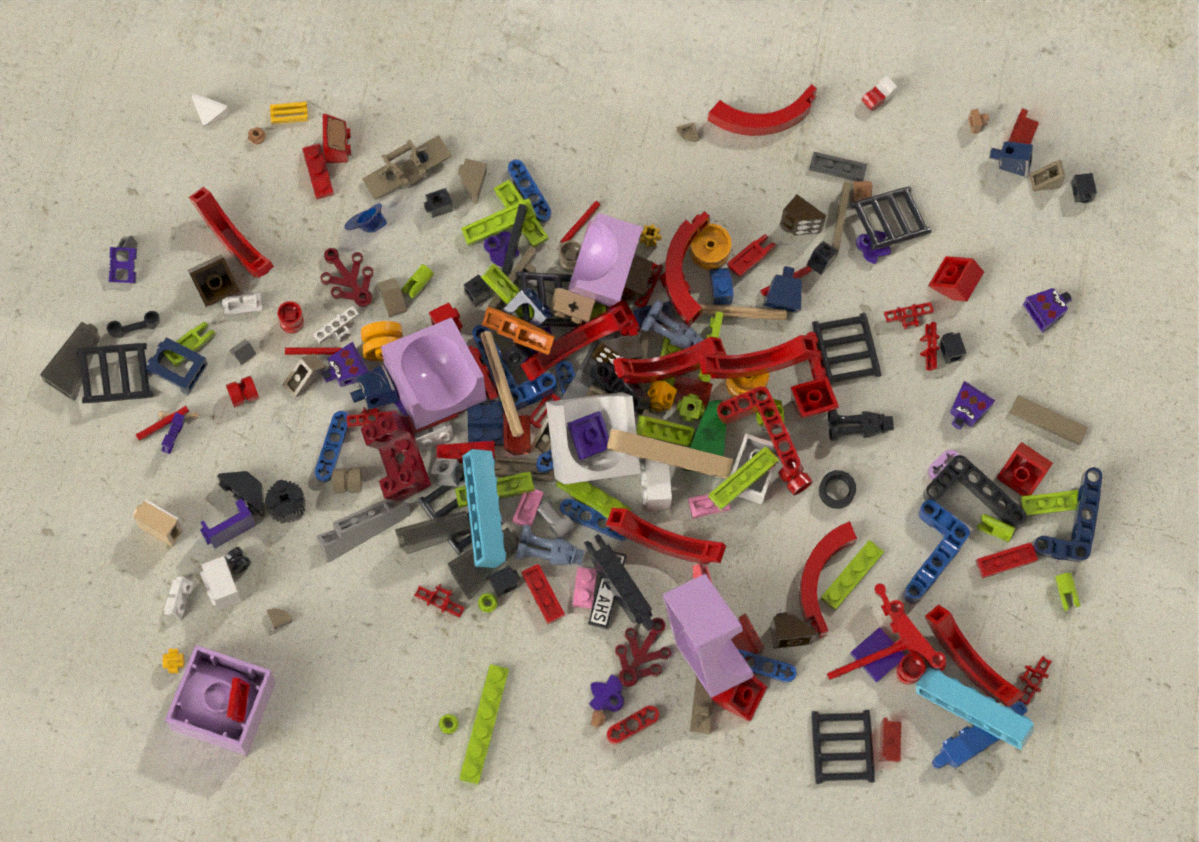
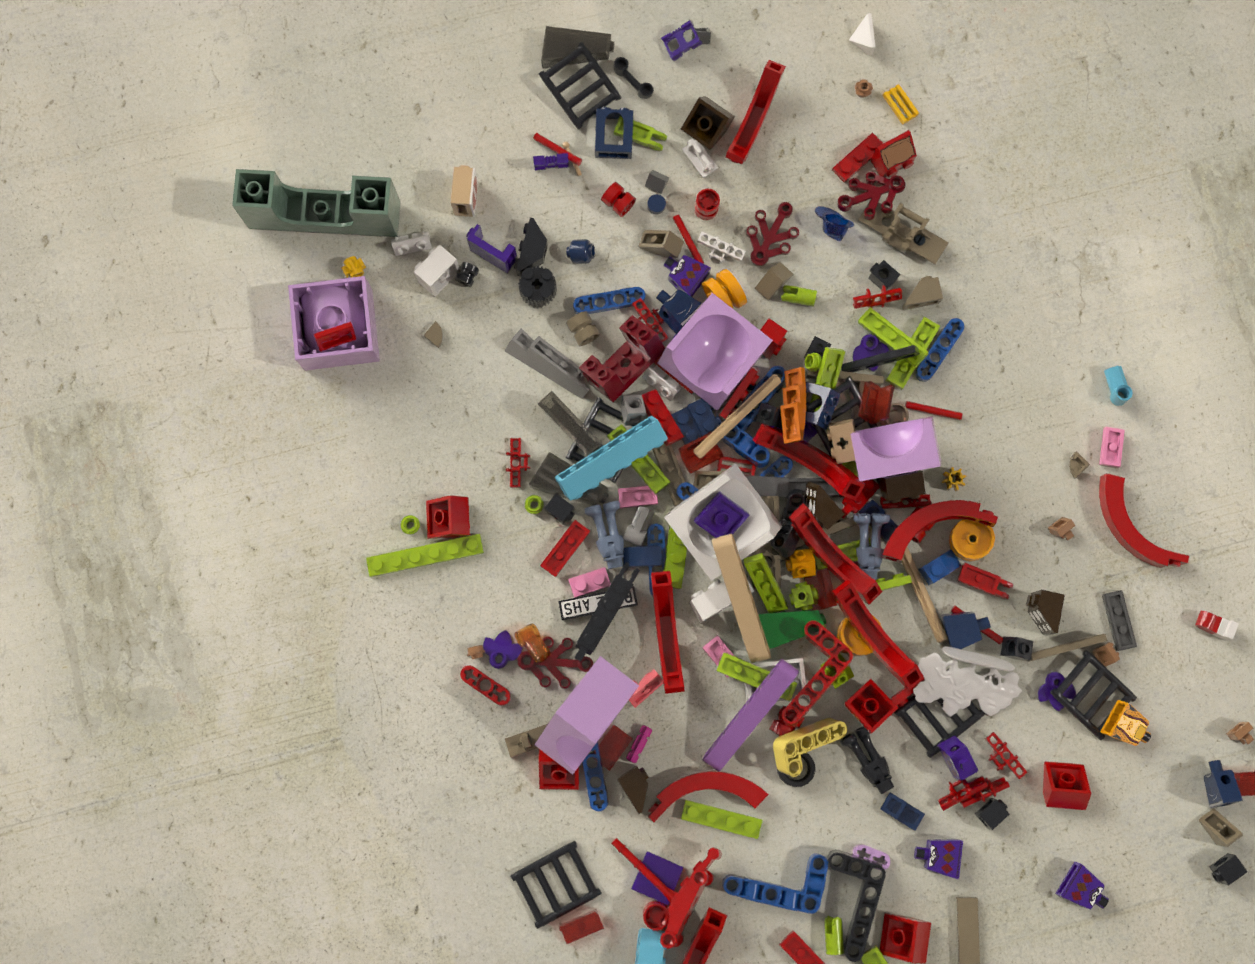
camera: 65 degrees right, 10 degrees up
(127, 618) = (269, 204): none -> sand green arch
(264, 362) = (656, 204): none -> dark blue tile
(272, 448) = (581, 251): none -> dark blue head
(358, 174) = (873, 193): none -> dark red plant
(459, 213) = (871, 298): none -> red piece
(459, 685) = (448, 517): none -> red slope
(487, 296) = (813, 362): none -> lime plate
(551, 262) = (876, 402): none -> clear red panel
(585, 528) = (643, 556): none -> dark blue slope
(610, 662) = (530, 639): none -> clear orange piece
(636, 65) = (1117, 383): none -> medium azure piece
(687, 97) = (1111, 447): none -> bright pink plate
(737, 171) = (1062, 528): none -> medium nougat tile
(752, 613) = (639, 744): none -> dark pink axle
(774, 500) = (750, 715): none -> medium lavender beam
(817, 477) = (793, 744): none -> light yellow beam
(832, 314) = (962, 685): none -> white plant
(893, 350) = (958, 761): none -> dark purple torso
(916, 420) = (902, 811): none -> dark blue slope
(922, 351) = (951, 799): none -> red piece
(928, 204) = (1126, 724): none -> torso

